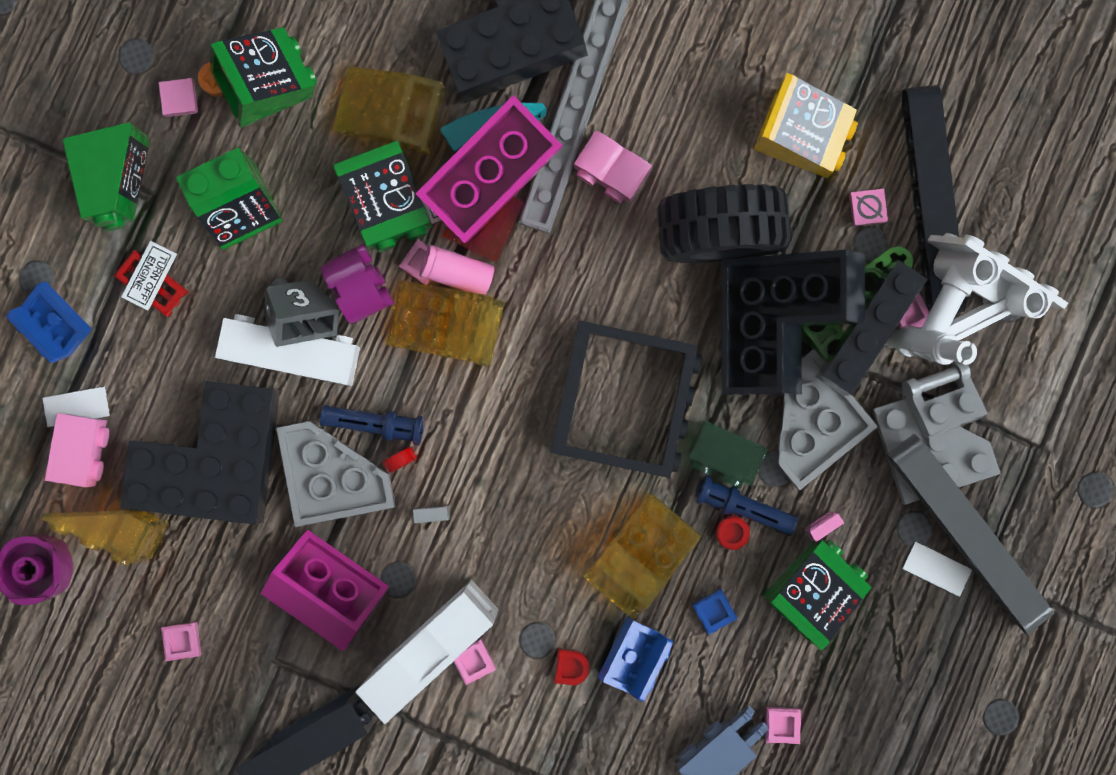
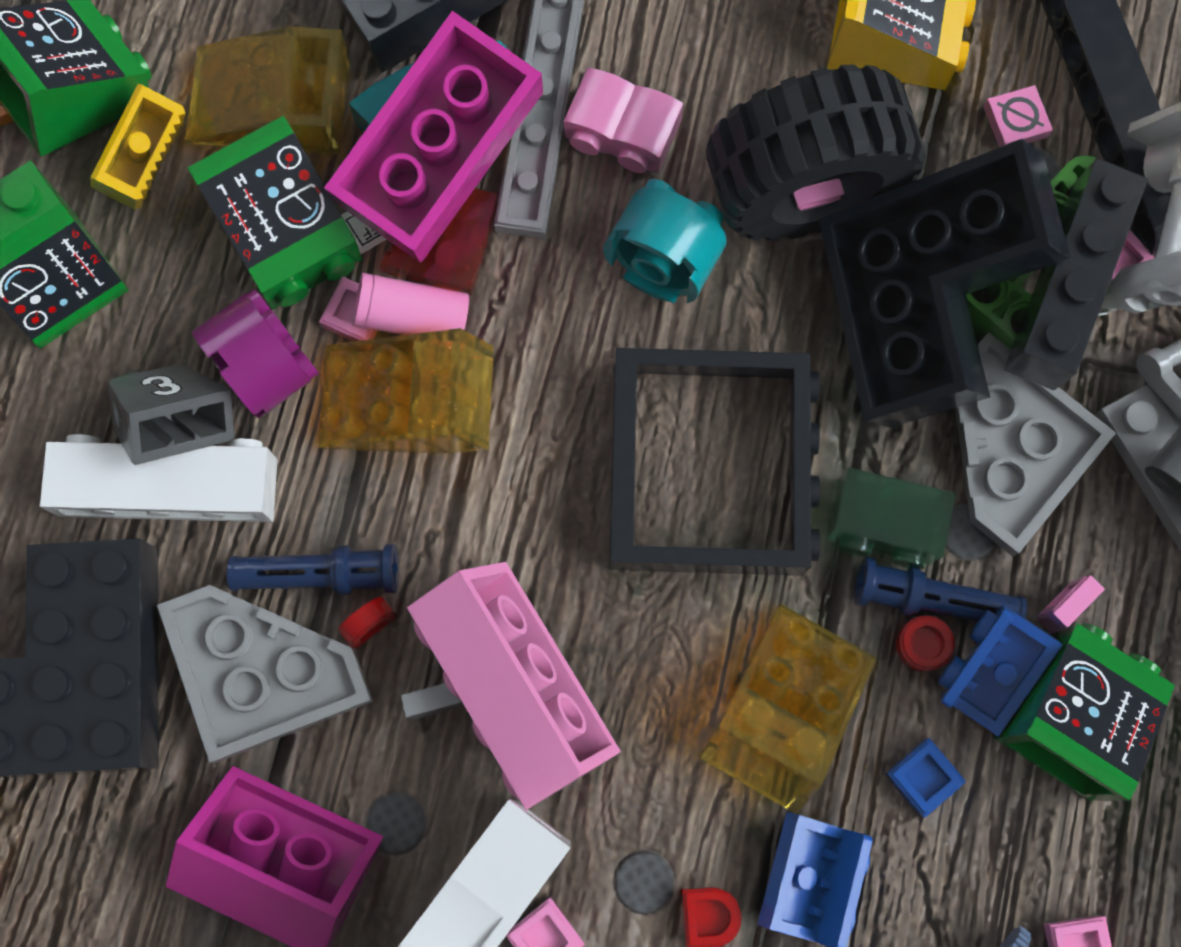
camera: 10 degrees left, 10 degrees down
(302, 134) = (138, 147): none -> yellow brick
(480, 515) = (512, 681): none -> bright pink brick
(623, 257) = (666, 242): none -> teal brick
(771, 557) = (998, 669): none -> blue bracket

